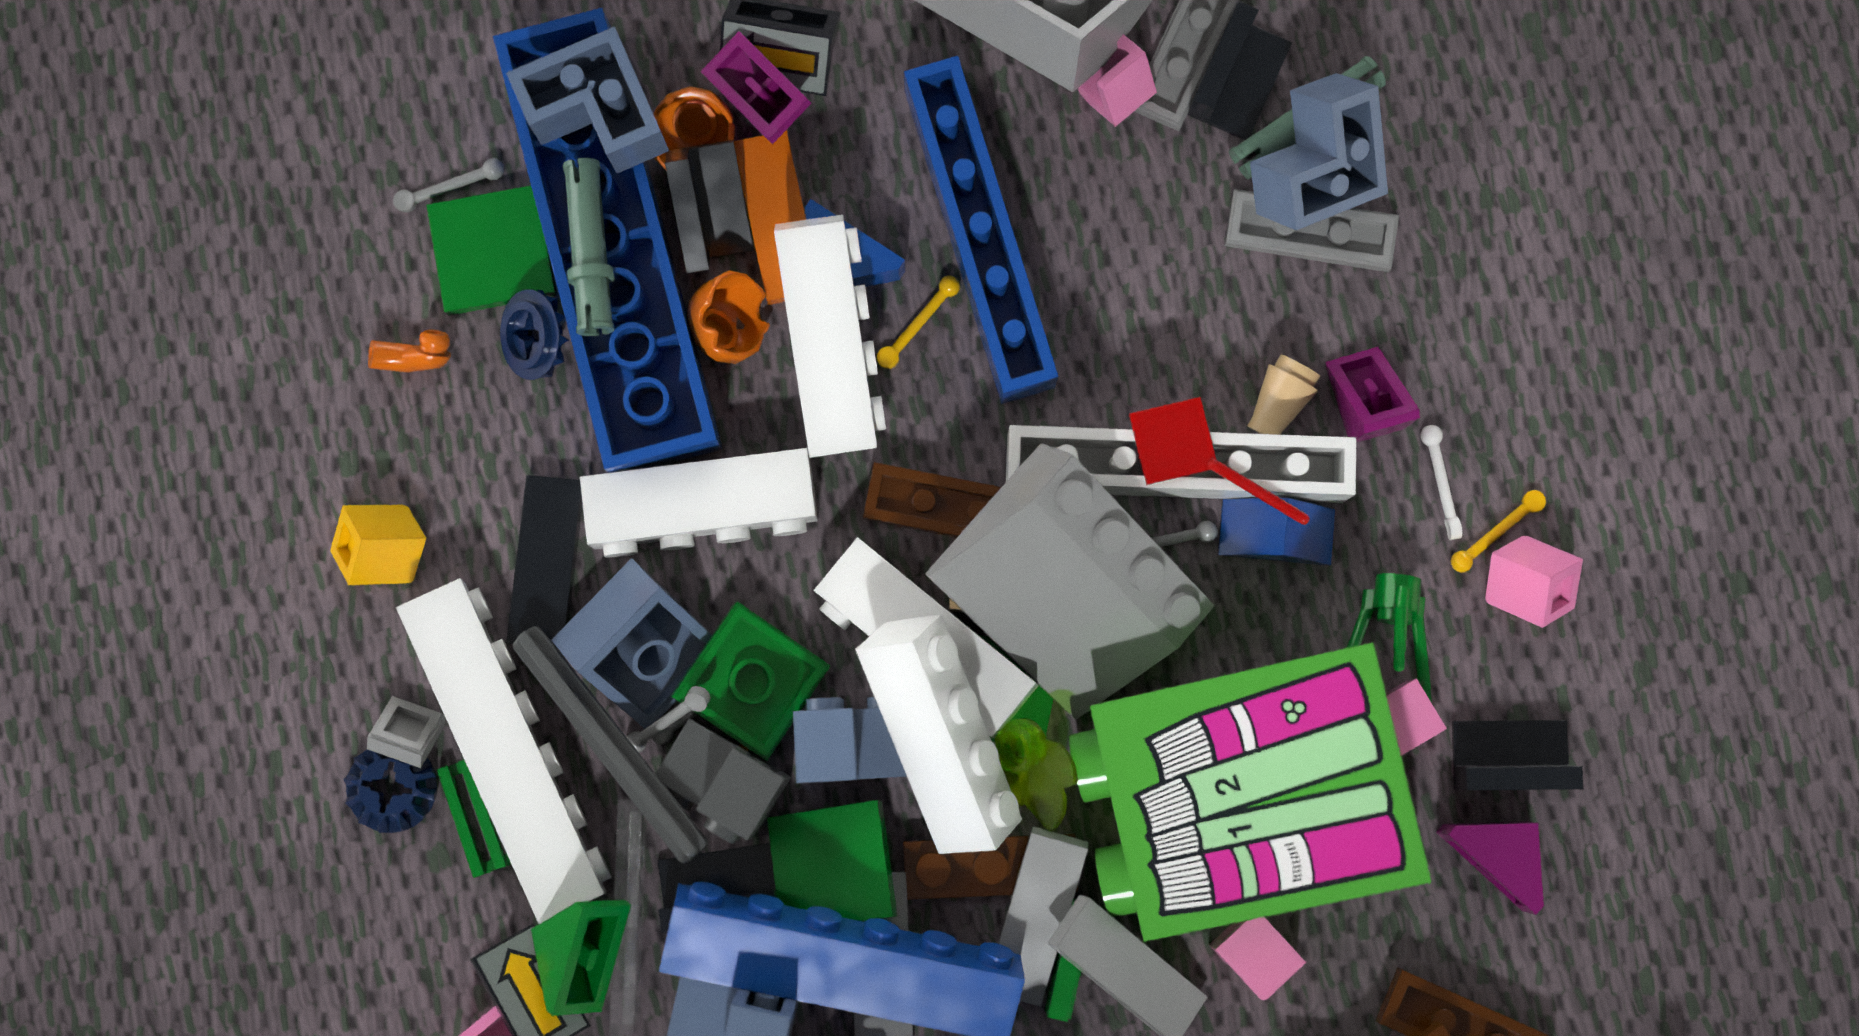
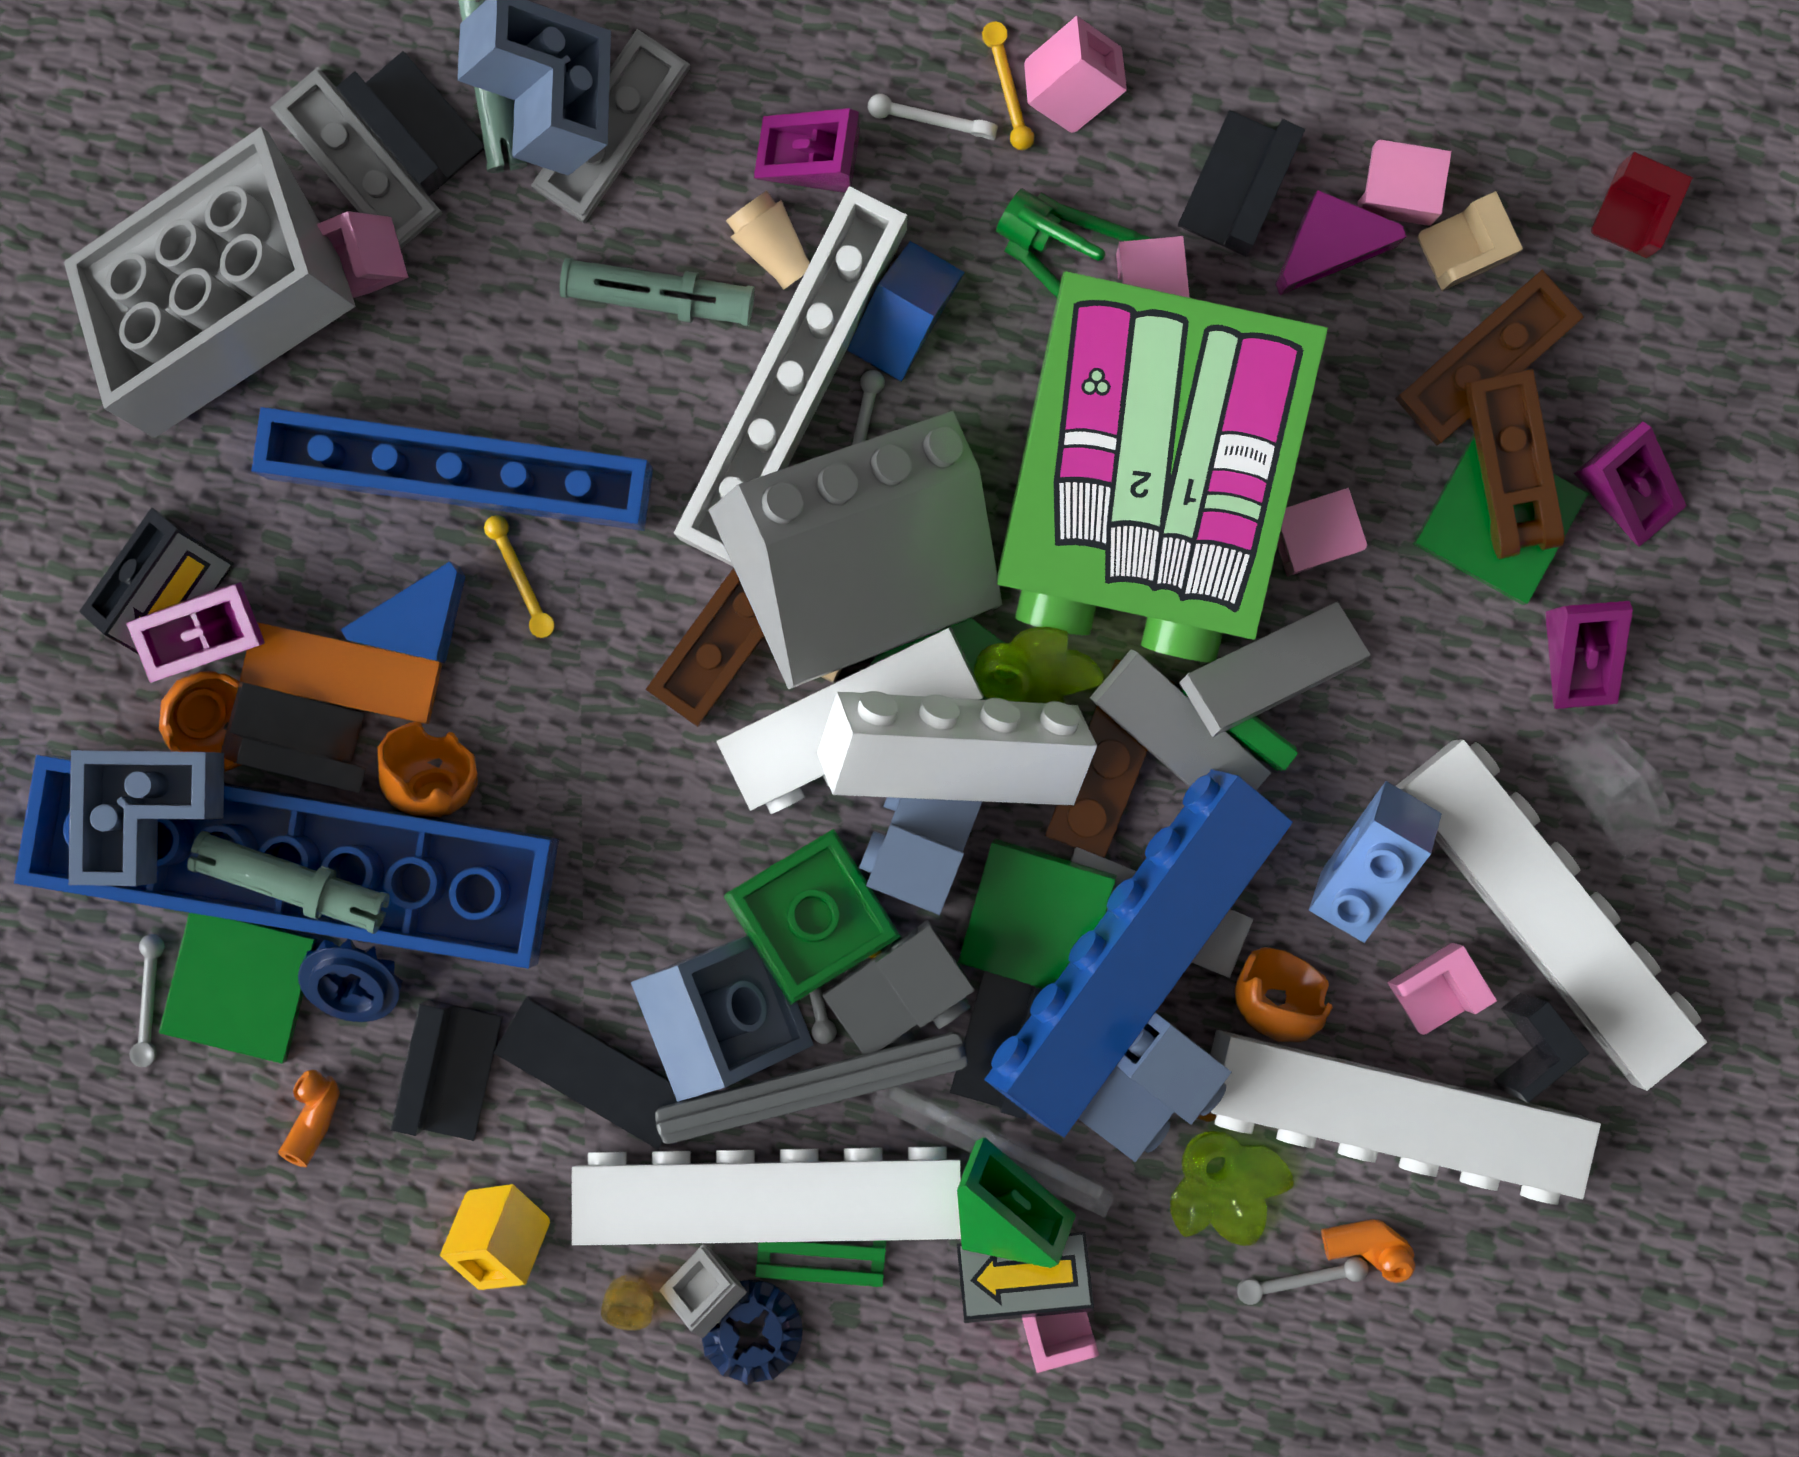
camera: 70 degrees left, 5 degrees up
(369, 676) = (628, 1304): none -> clear yellow hinge
(495, 443) = (446, 1070): none -> black panel
(695, 700) = (807, 980): light grey hinge -> none
(699, 500) = (602, 886): white brick -> none
(826, 335) = (493, 677): white brick -> none
(1178, 443) = (771, 370): red piece -> none
(1215, 389) = (732, 302): none -> sand green pin
(1556, 971) = (1470, 242): none -> tan panel
(1580, 894) = (1406, 182): none -> bright pink panel

